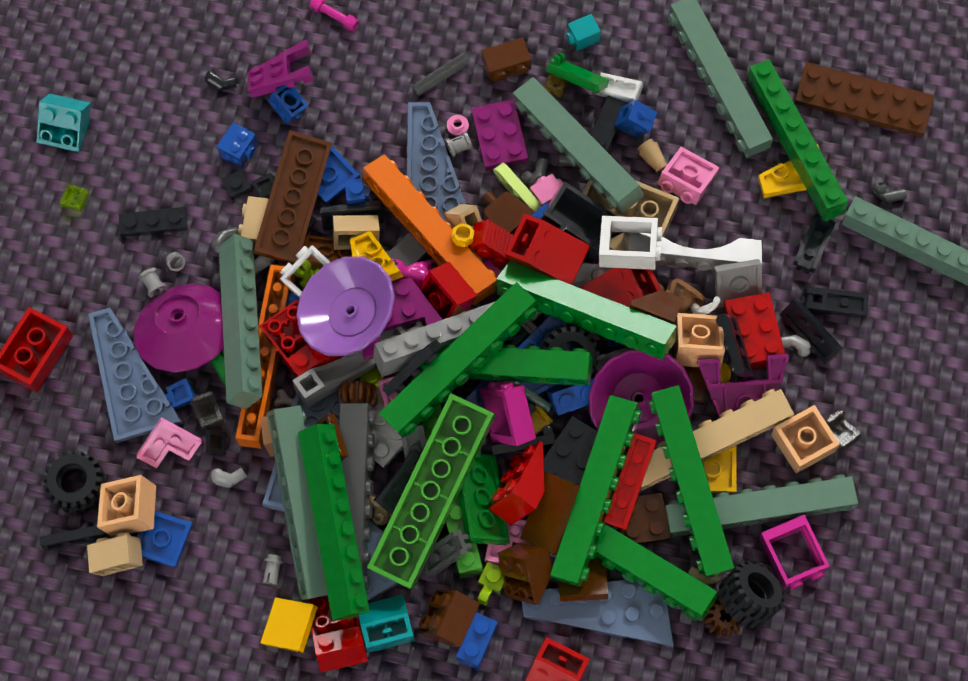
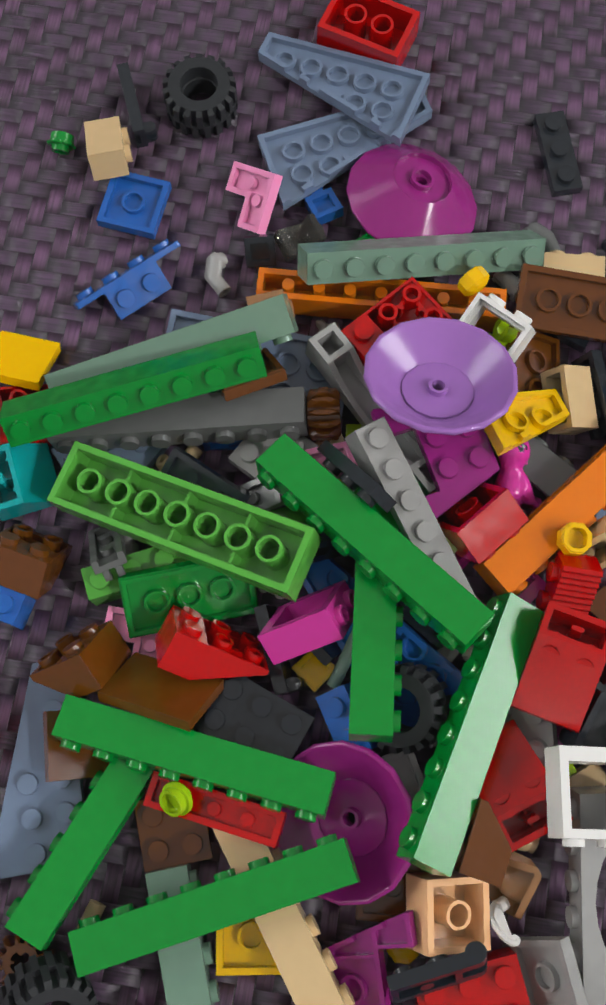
camera: 85 degrees right, 5 degrees up
(74, 197) = (579, 60): clear neon green tile -> none
(84, 357) = (364, 88): none -> sand blue wing
(100, 596) = (61, 142): none -> green plate
(127, 506) = (167, 152): light nougat brick -> none
(152, 282) = (472, 158): light grey bush -> none
(177, 264) = (500, 187): light grey hinge -> none
(231, 540) = (135, 285): none -> blue bracket
(266, 284) = (473, 281): none -> yellow tile
(272, 569) = (95, 336): light grey pin -> none
(491, 581) = (78, 616): lime plate -> none
(623, 502) = (175, 799): none -> lime plate

